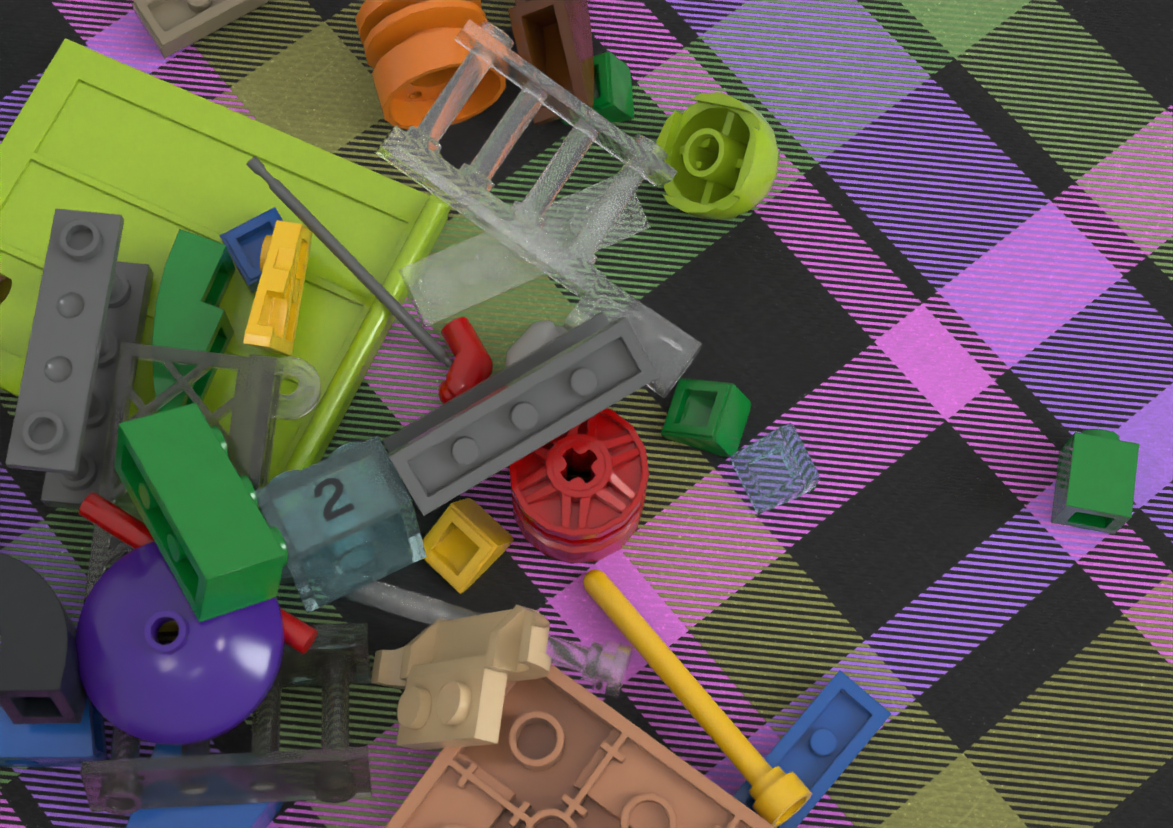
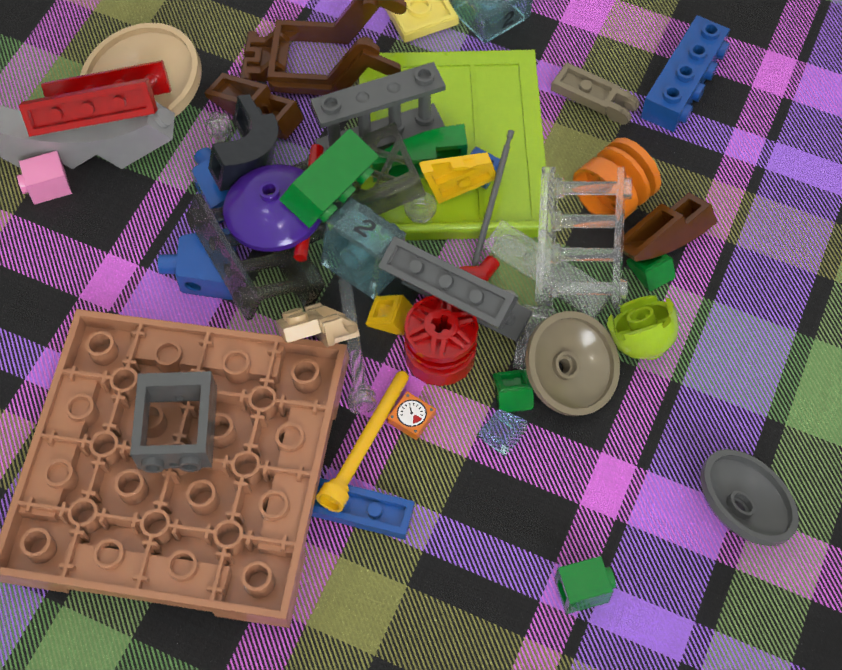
camera: 65 degrees right, 10 degrees down
(675, 600) = (411, 415): none -> tile
(727, 300) = (587, 359): none -> dark tan dish
(1073, 173) = (749, 498): none -> dark grey dish

